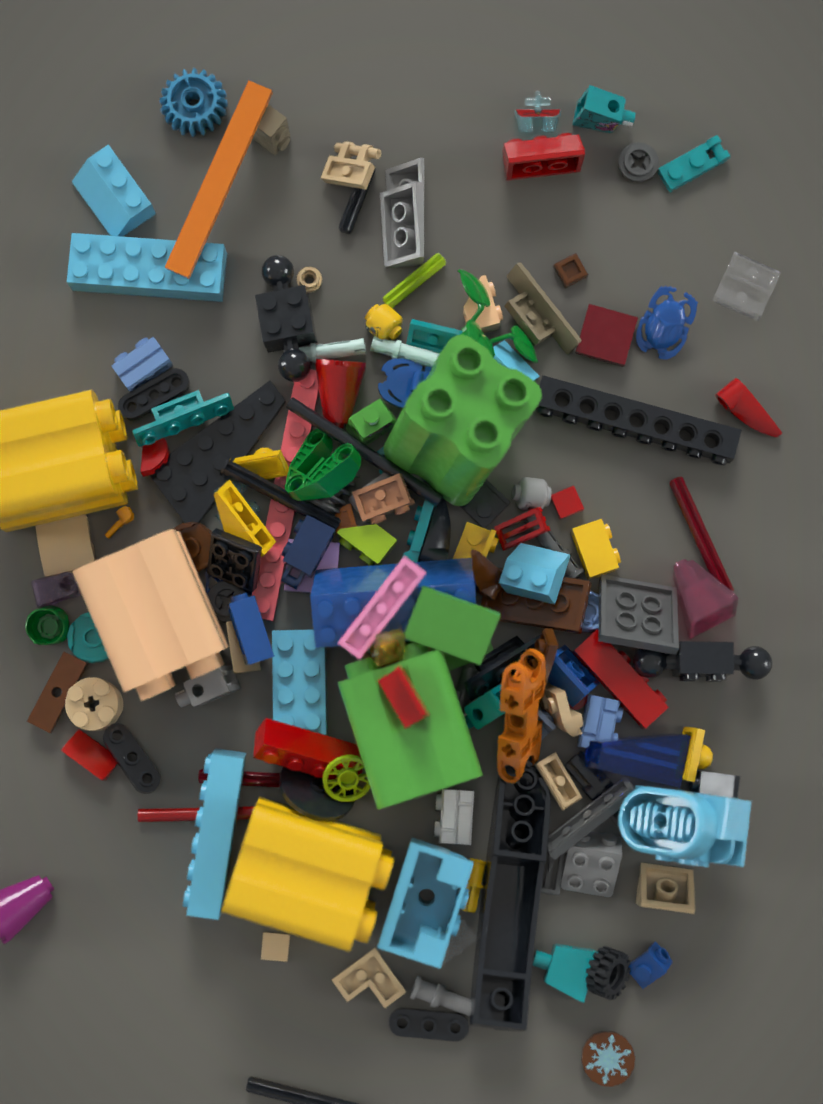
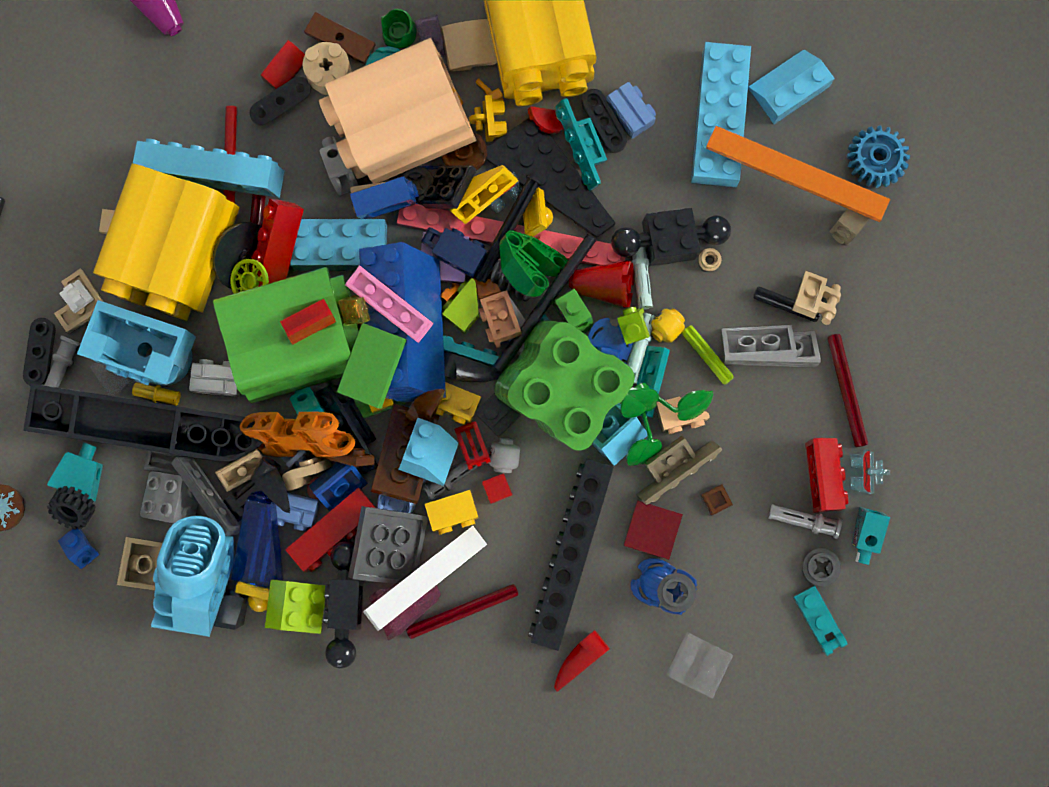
camera: 90 degrees right, 0 degrees up
(151, 523) = (490, 108): none -> yellow hips
(351, 557) = (450, 293): none -> orange tile
(365, 981) = (76, 296): none -> white tile
(385, 356) = (633, 325): none -> lime bracket
(449, 135) = (847, 390): none -> dark red axle
(574, 744) = (270, 482): none -> black piece
(592, 167) = (815, 522): none -> light grey pin
(672, 572) = (424, 578): none -> white tile
(687, 300) = (686, 586): none -> dark grey gear
(708, 713) = (295, 606): none -> lime piece

